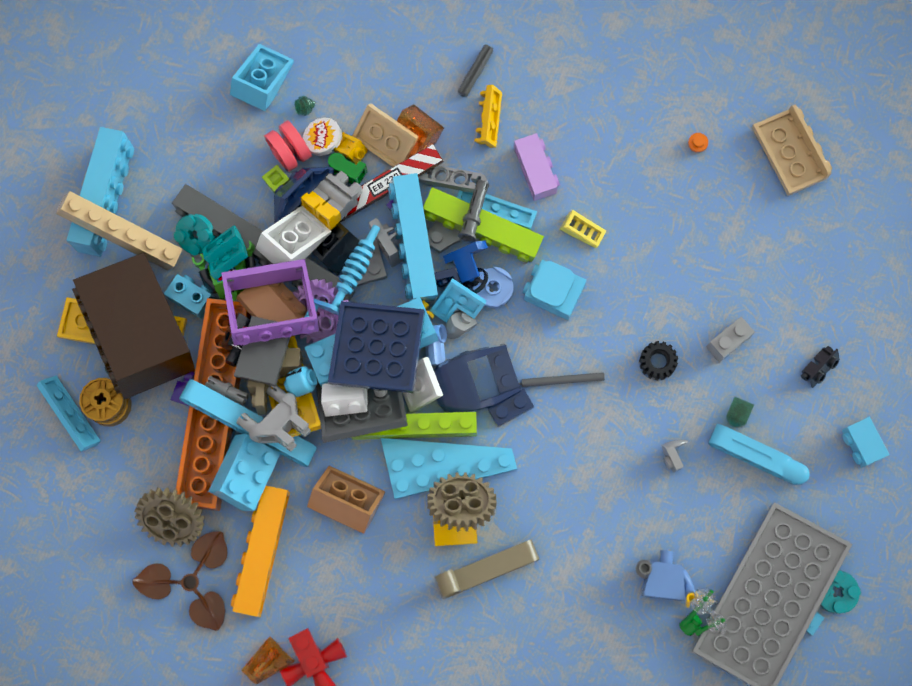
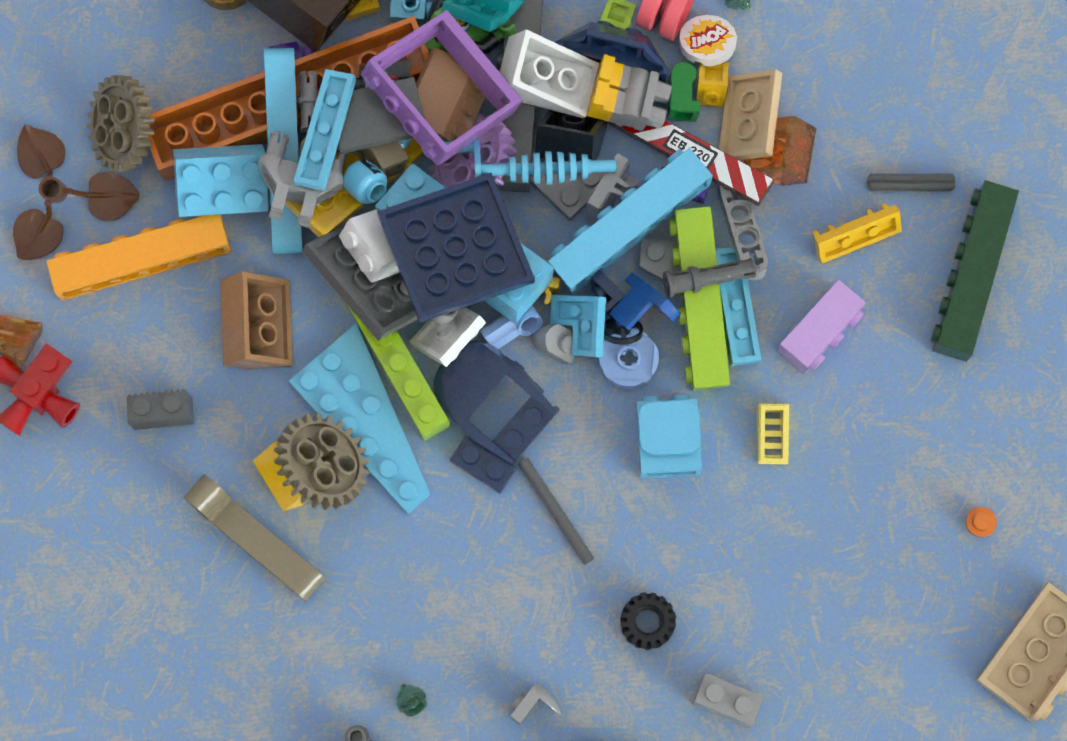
camera: 60 degrees right, 0 degrees up
(257, 386) = (325, 130): none -> medium azure plate
(370, 587) = (160, 409): none -> dark grey brick
(549, 64) = (975, 270): none -> dark green brick
(633, 526) = (411, 700): none -> clear green plate

